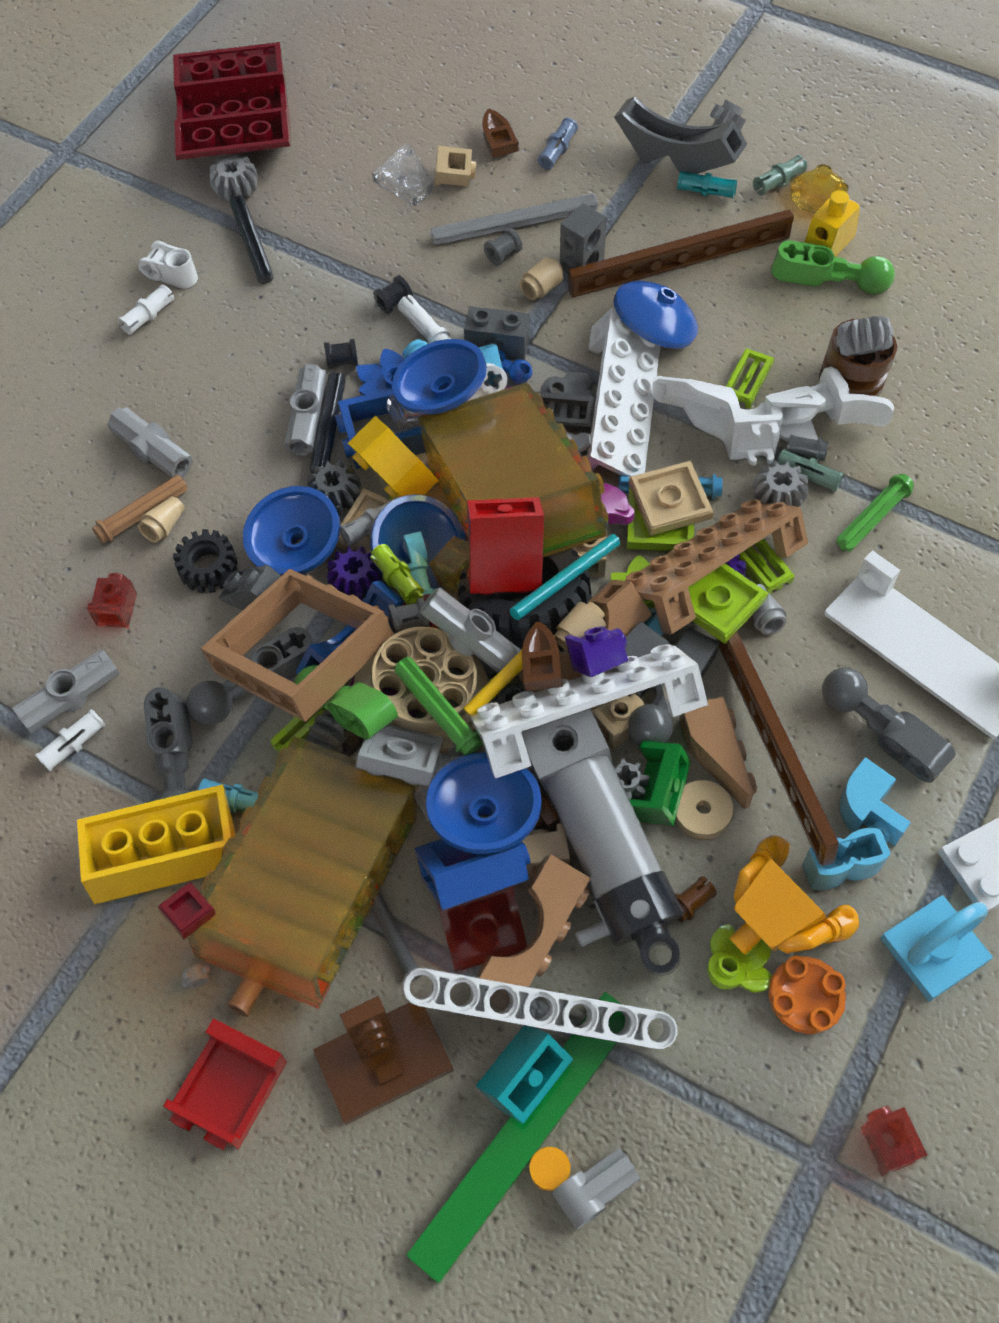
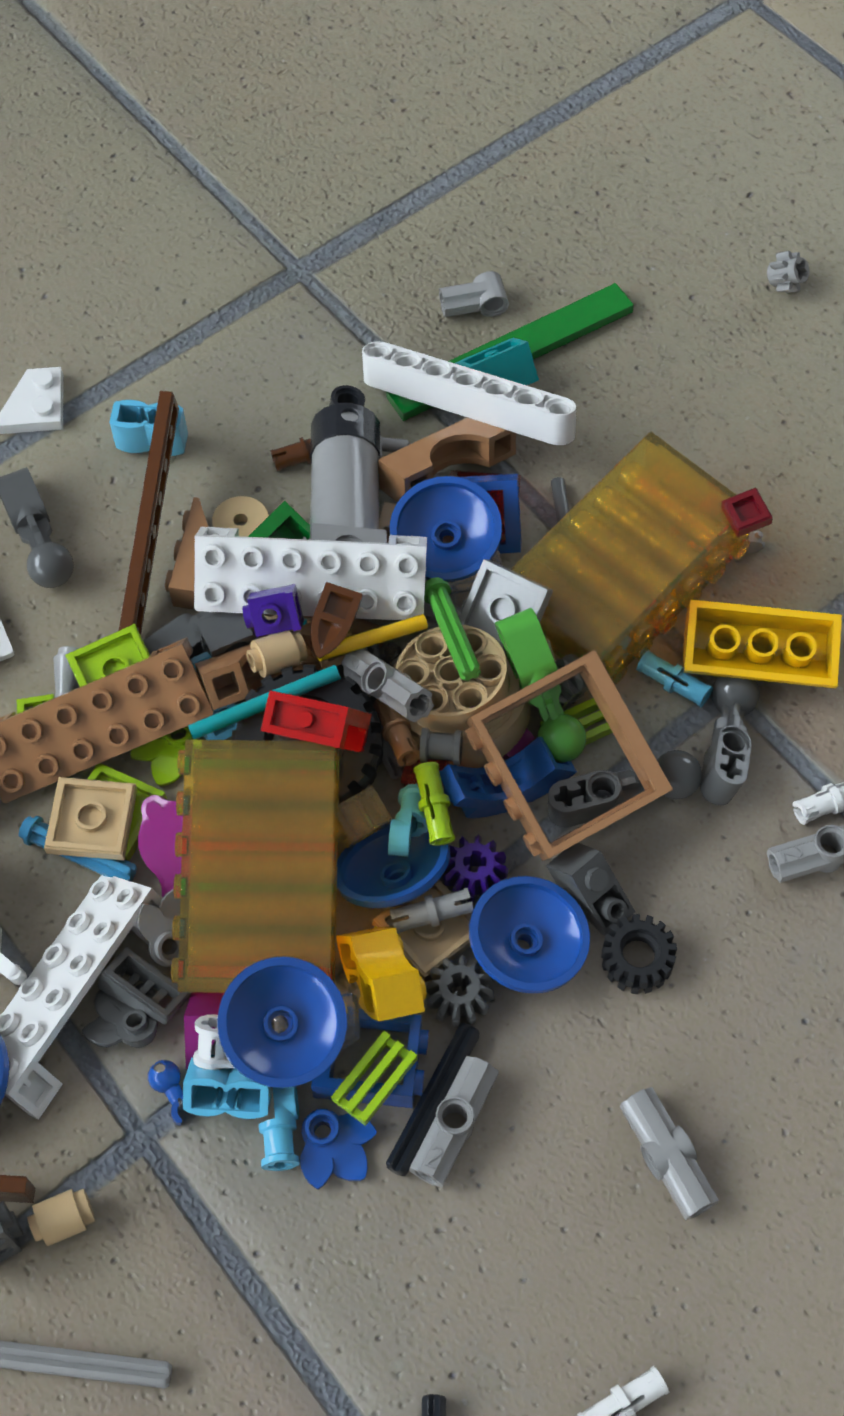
camera: 160 degrees left, 0 degrees up
(113, 601) = (762, 925): clear red brick -> none
(131, 514) = (702, 1059): medium nougat axle -> none
(160, 520) = (678, 1031): tan cone -> none
(226, 1086) = (746, 449): red panel -> none
(341, 354) = (377, 1198): black bush -> none
(373, 377) = (396, 1049): none -> lime tile
(381, 1057) = (611, 423): reddish brown piece -> none
(385, 297) = (270, 1276): black bush -> none
(422, 320) = (242, 1176): white pin -> none
(499, 327) = (165, 1140): dark grey brick -> none
(503, 246) = (82, 1302): dark grey bush -> none
(549, 1168) = (502, 321): light orange tile -> none
(746, 969) = (278, 404): lime plate -> none
(780, 910) = (232, 406): light orange torso -> none
(807, 994) = (241, 361): orange dish -> none
(863, 803) = (96, 476): medium azure brick -> none
(907, 1147) = (240, 260): clear red brick -> none
(939, 945) = (114, 359): medium azure tile -> none

